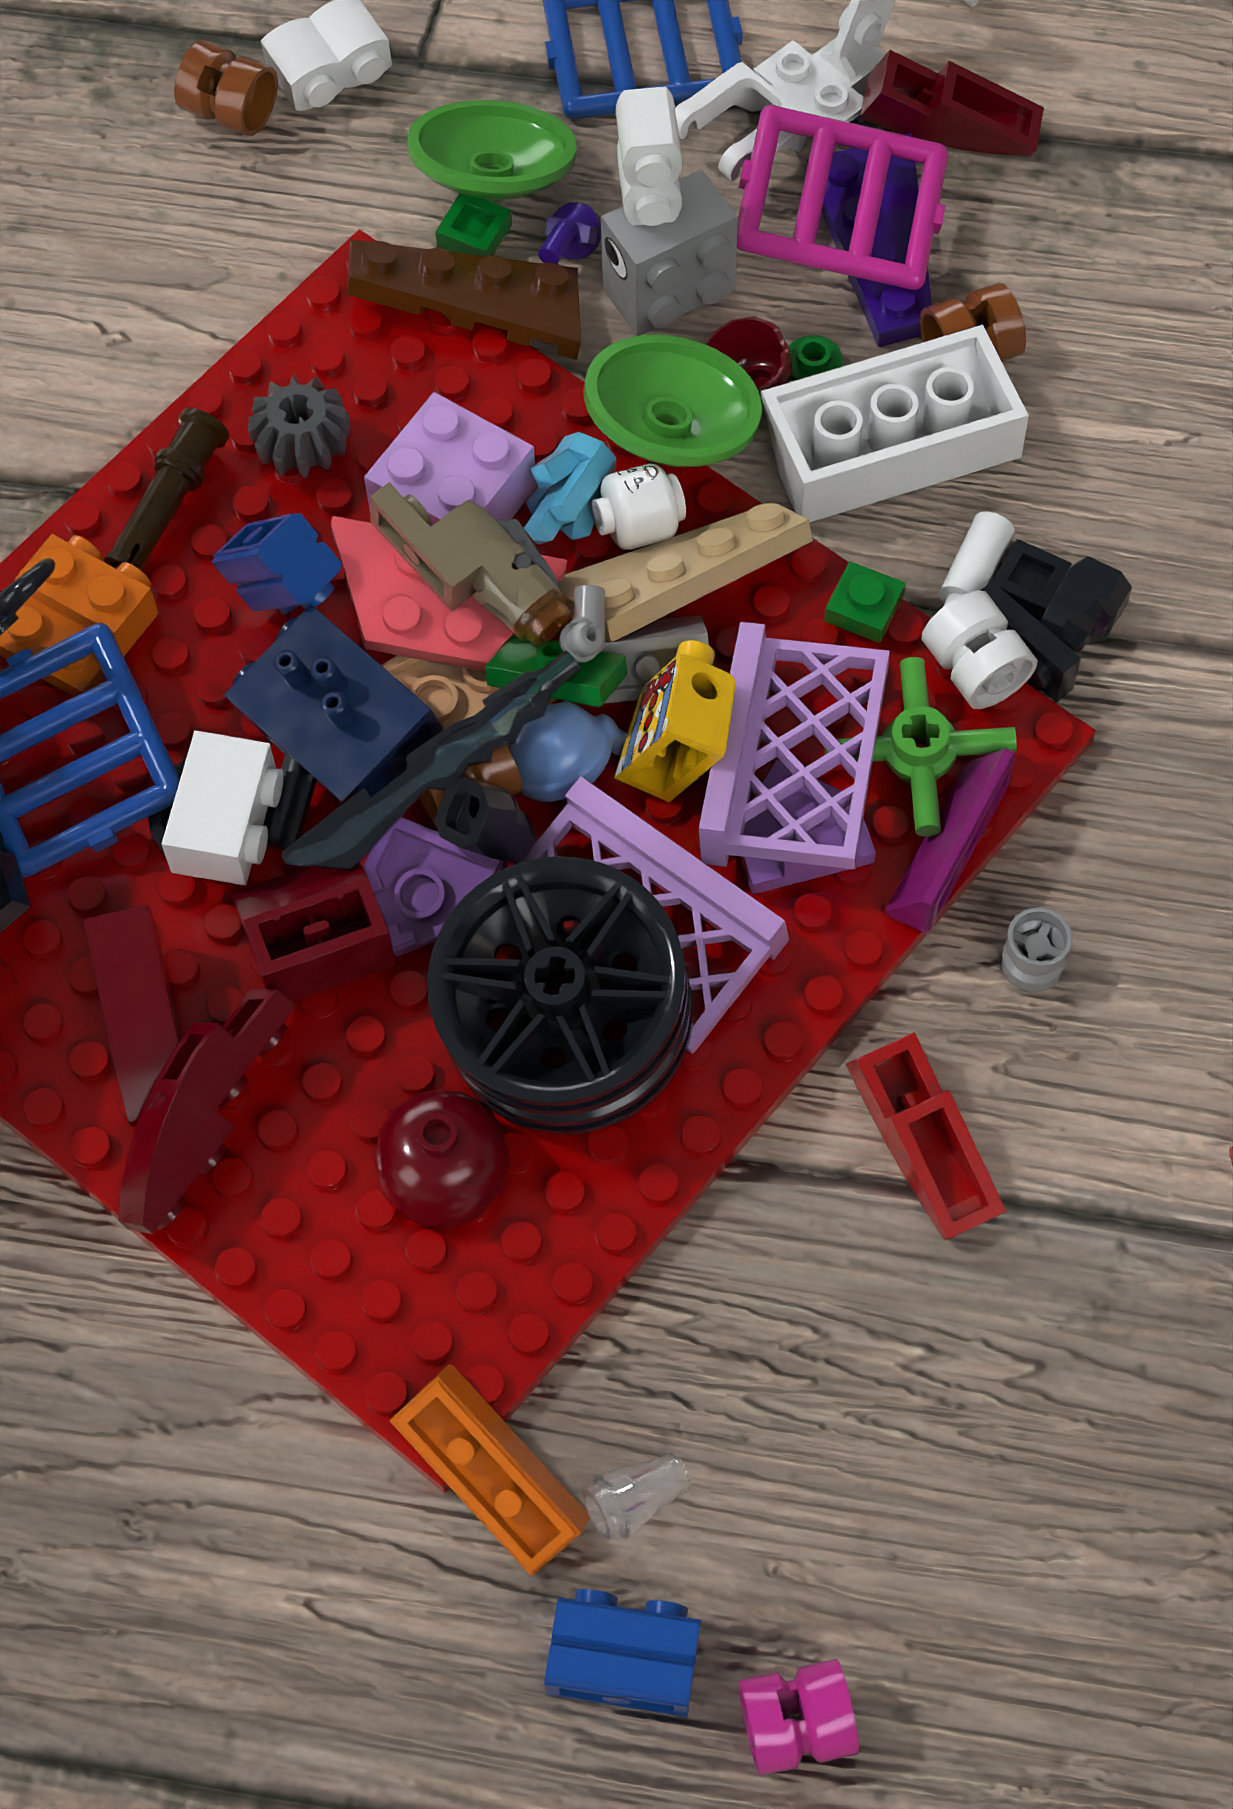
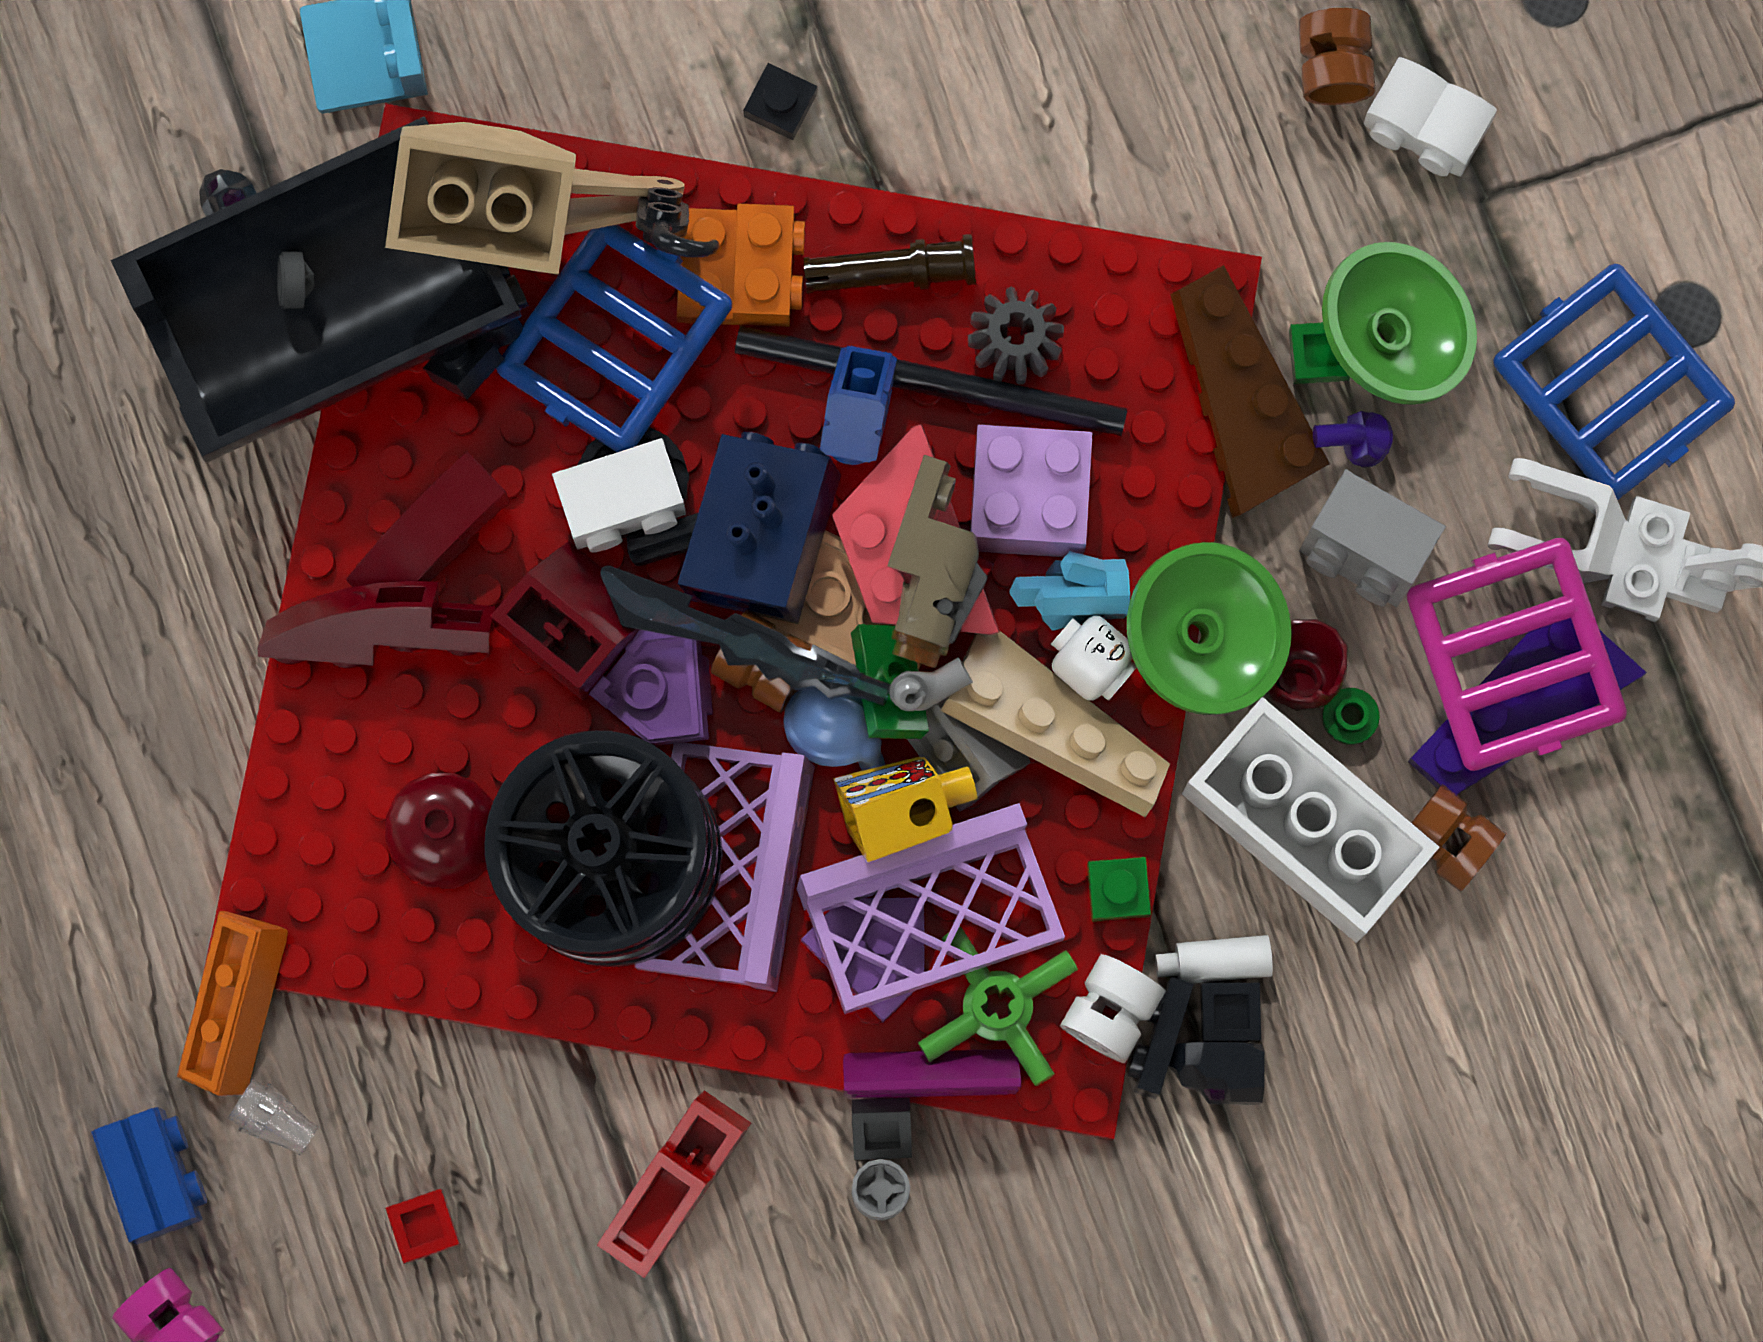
camera: 55 degrees right, 15 degrees up
(309, 502) = (942, 383): none -> black piece
(485, 821) = (719, 706): black rock -> none
(649, 156) = (1396, 485): white brick -> none
(835, 1400) = (423, 1226): none -> red plate
(950, 107) = (1693, 694): dark red slope -> none
(975, 919) = (881, 1128): none -> dark grey plate

